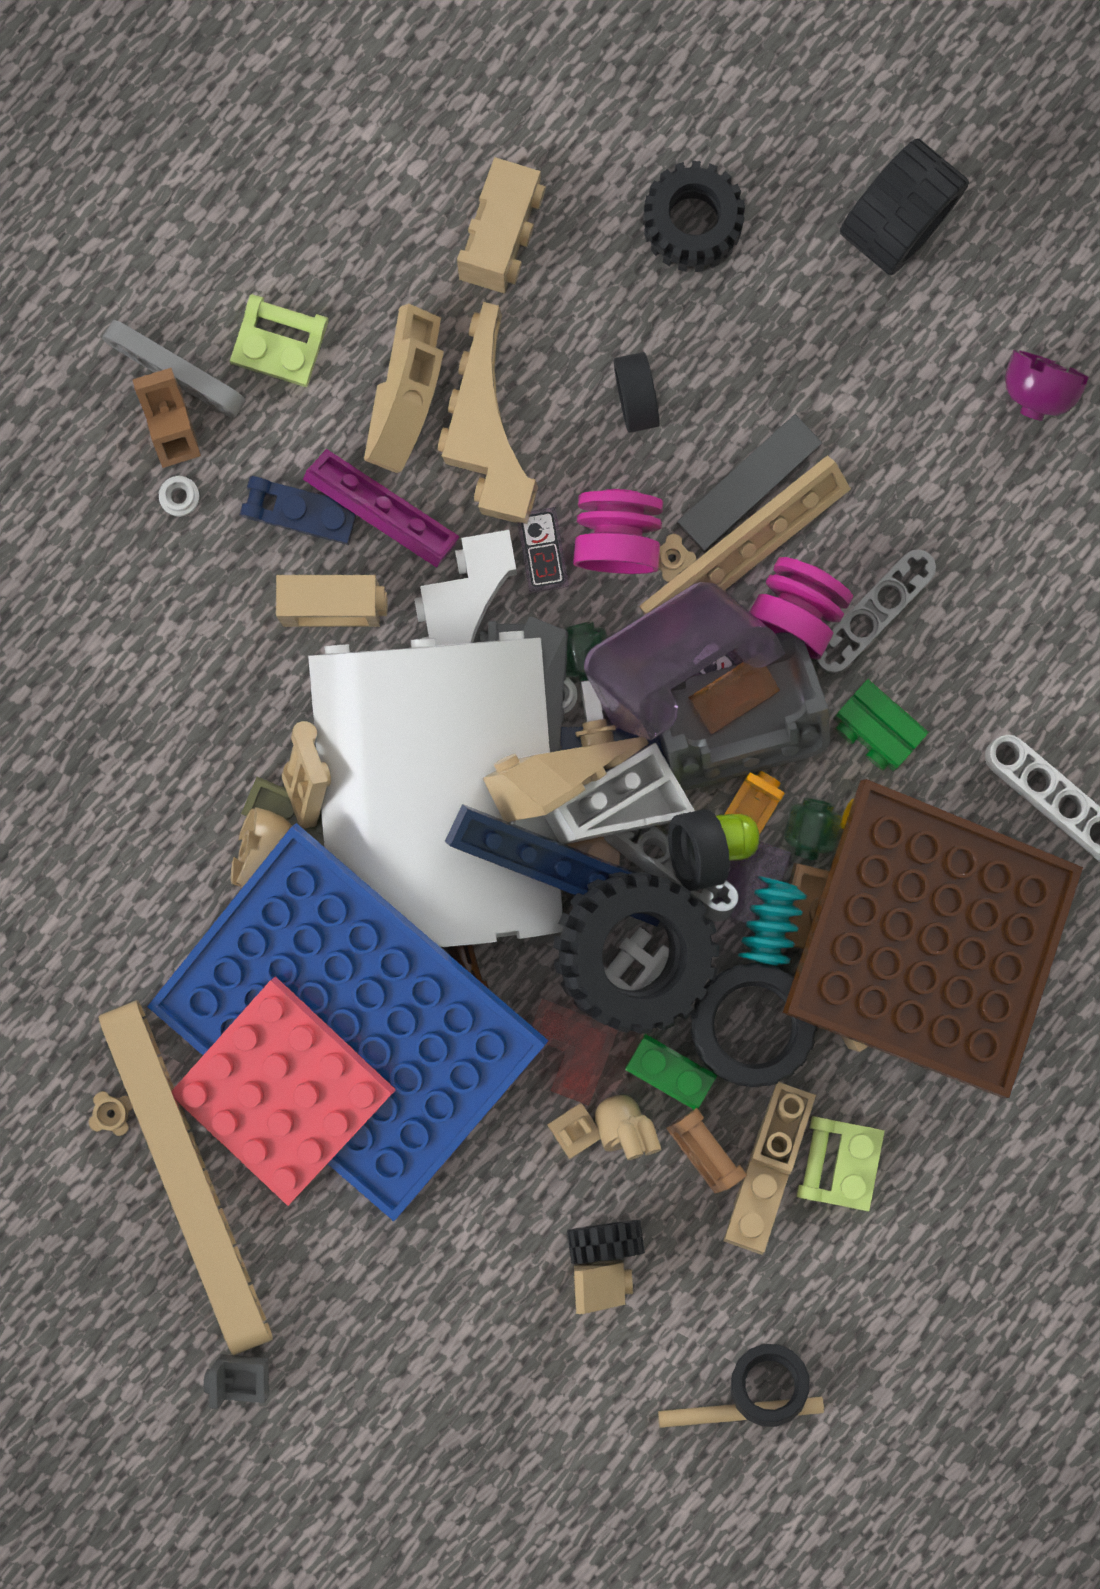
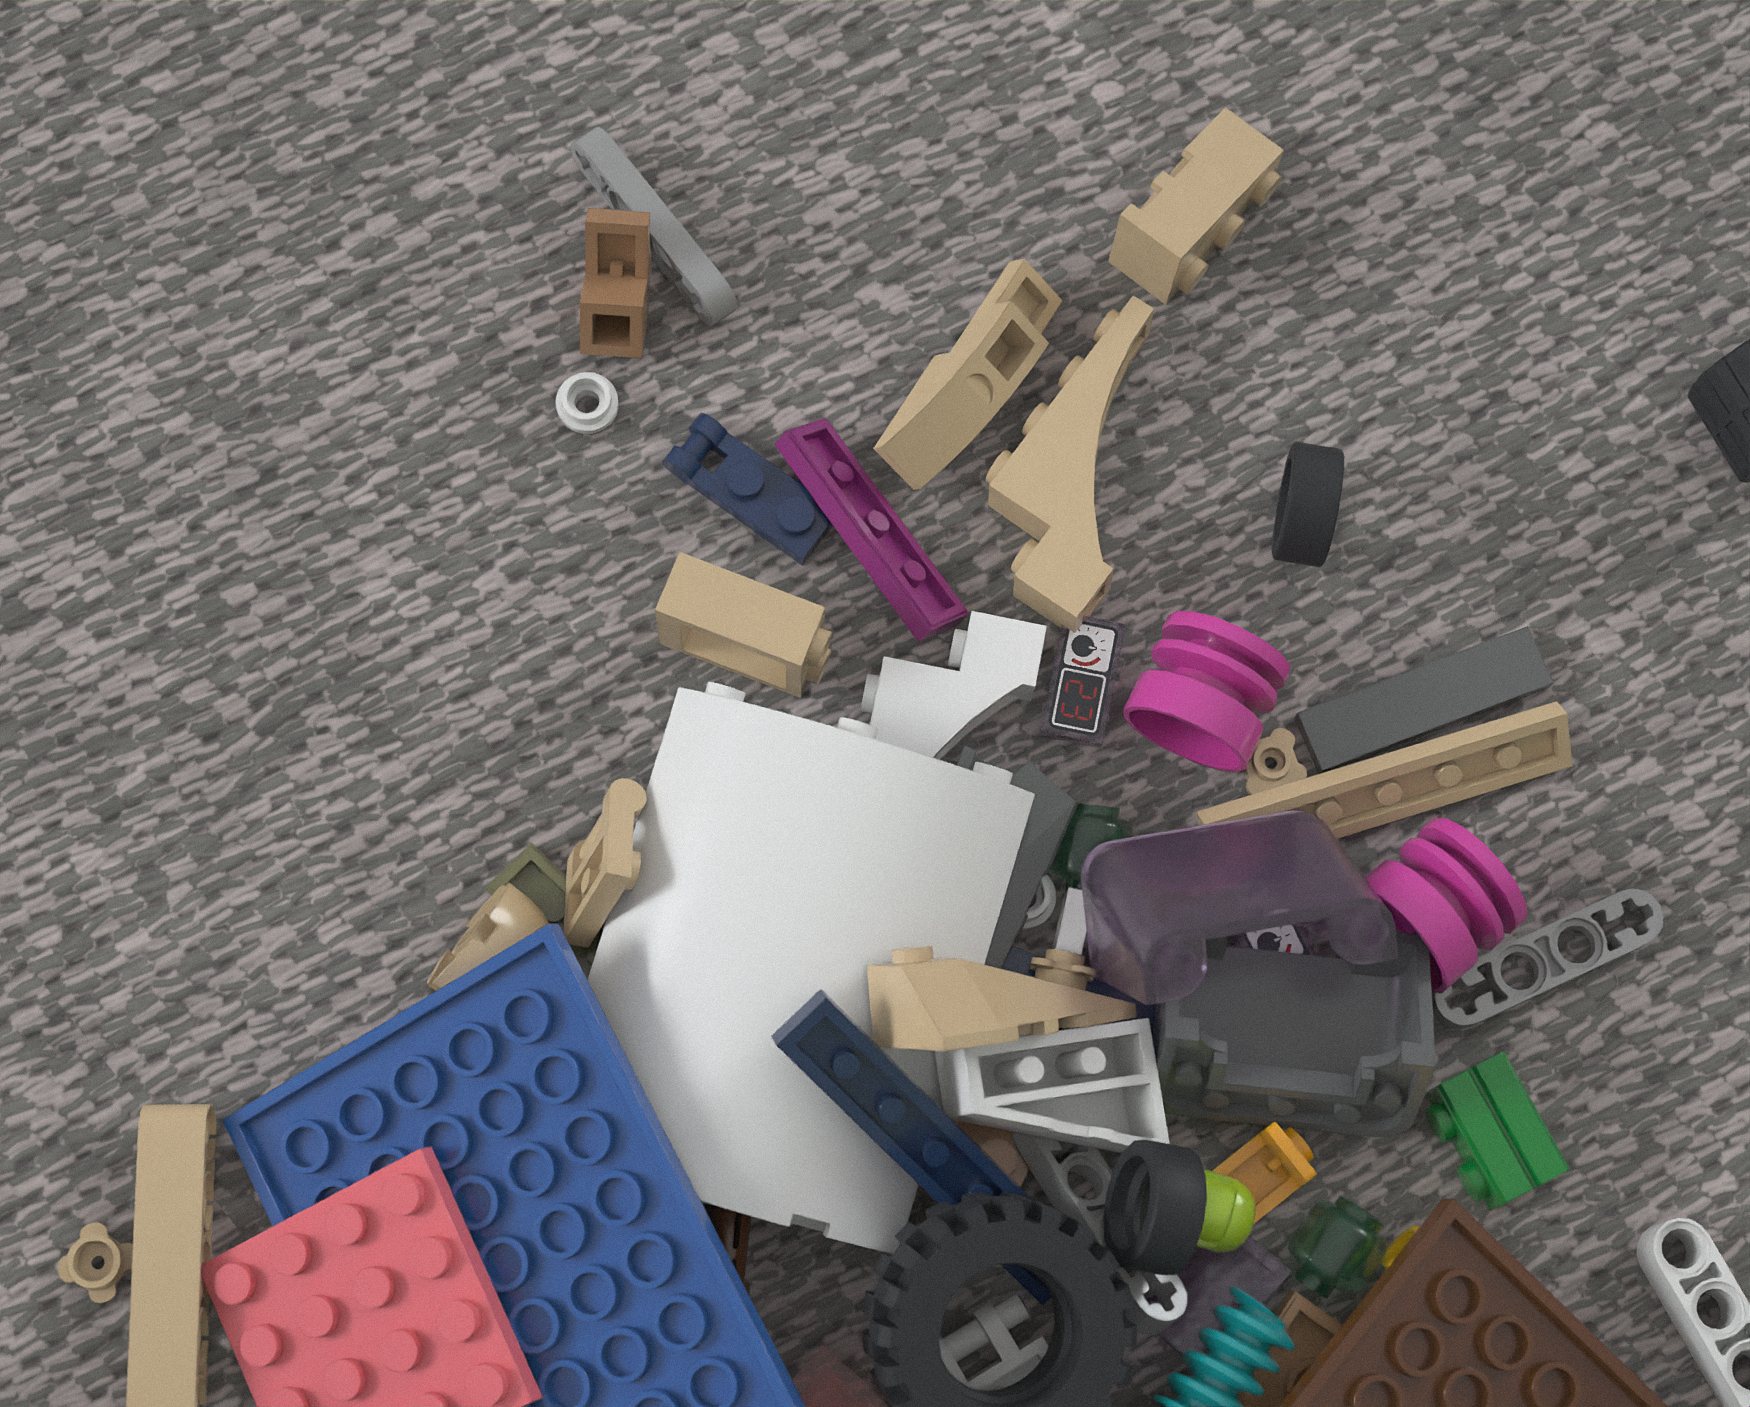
camera: 15 degrees right, 10 degrees down
(275, 353) = (806, 261): yellowish green plate -> none
(698, 184) = (1493, 251): black tyre -> none
(733, 695) = (1291, 995): clear orange plate -> none

